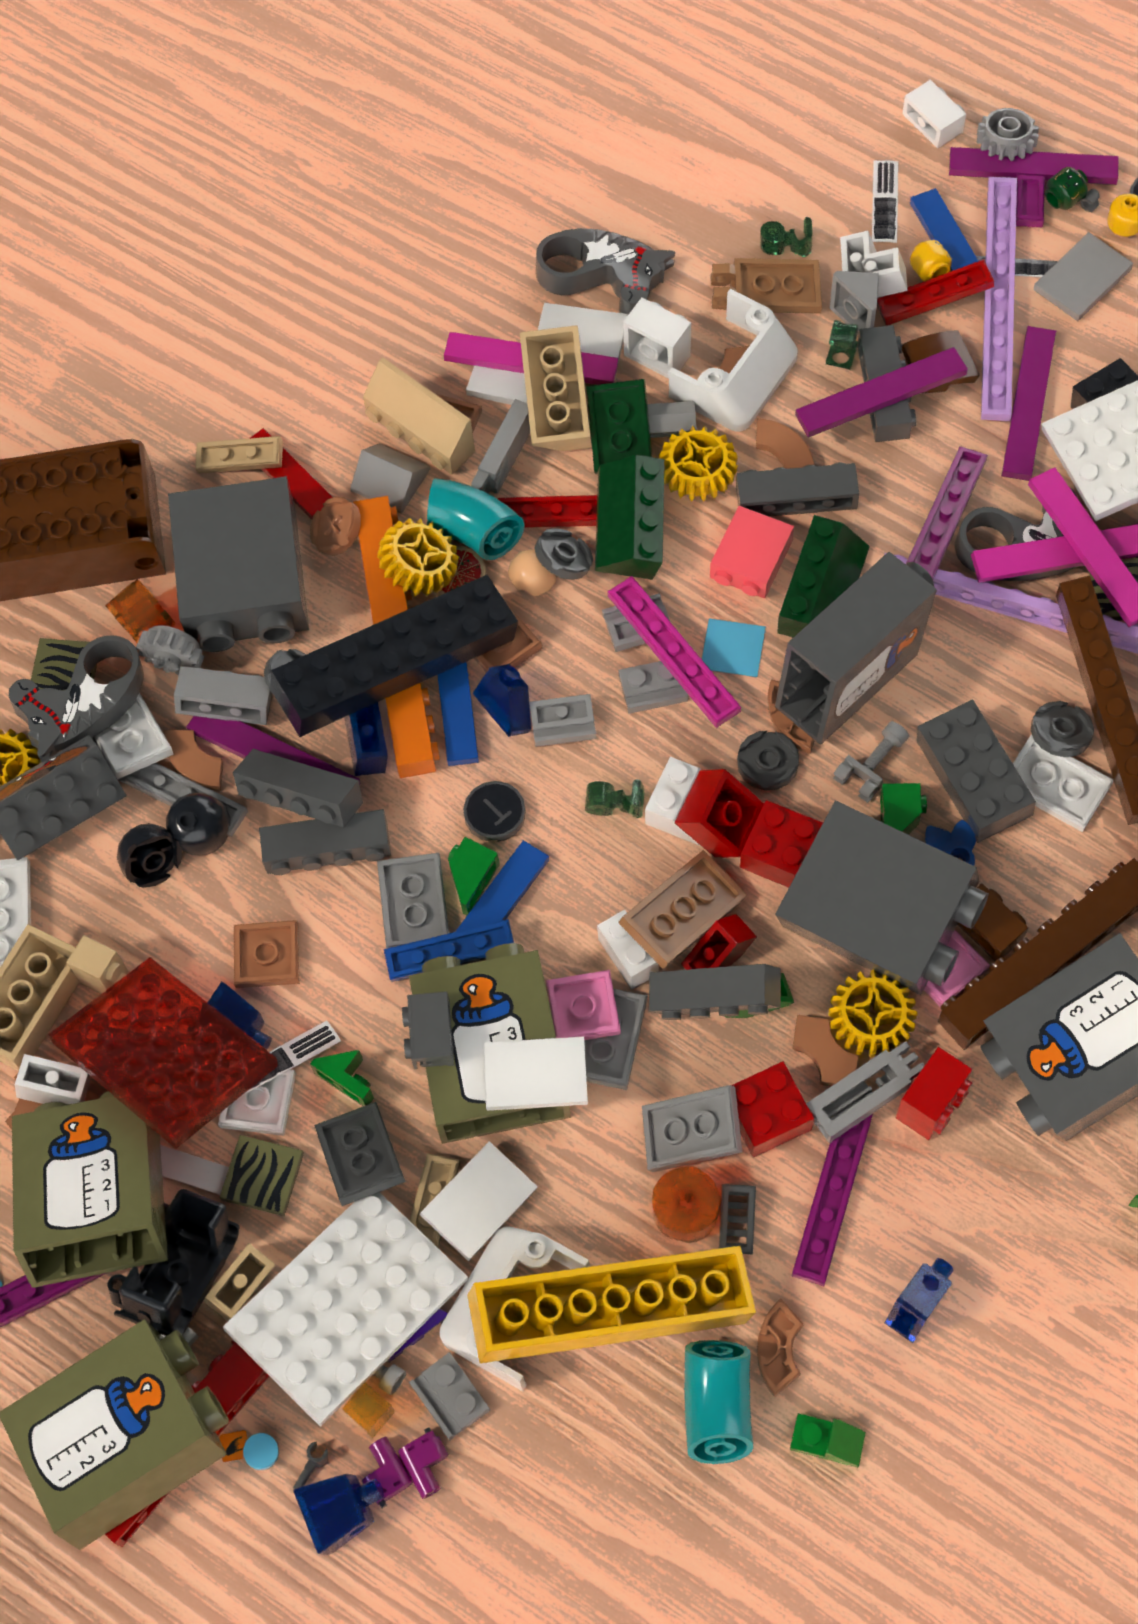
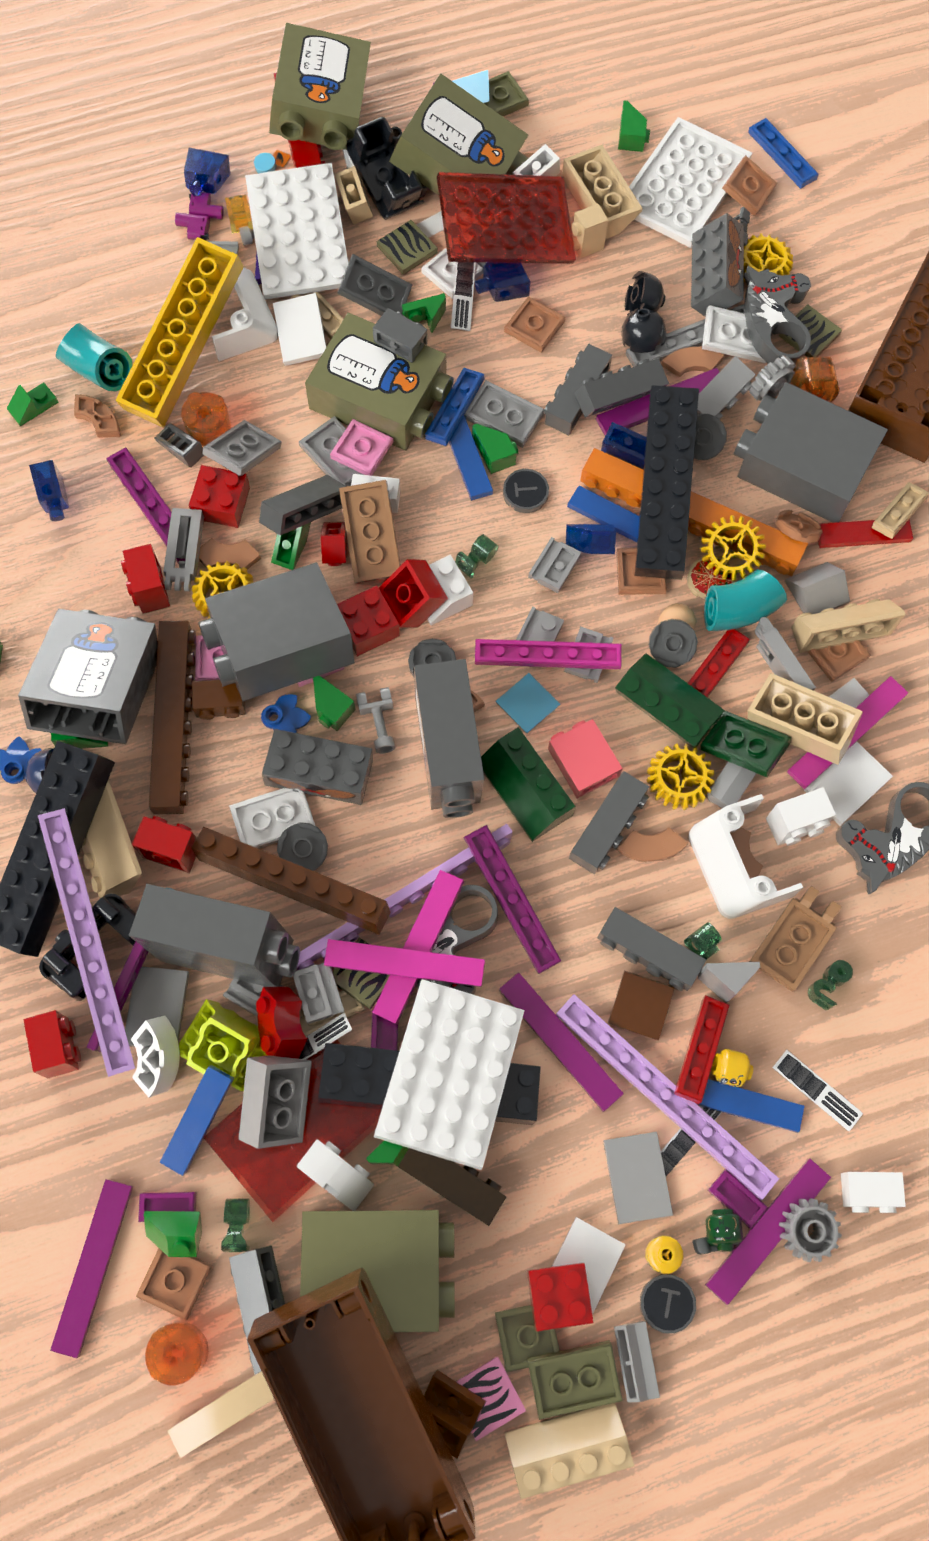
camera: 120 degrees right, 5 degrees up
(311, 1465) = (239, 180): dark grey hand -> none
(535, 1073) = (331, 373): white tile -> none
(861, 256) = (756, 1006): white brick -> none
(881, 392) = (638, 929): magenta tile -> none

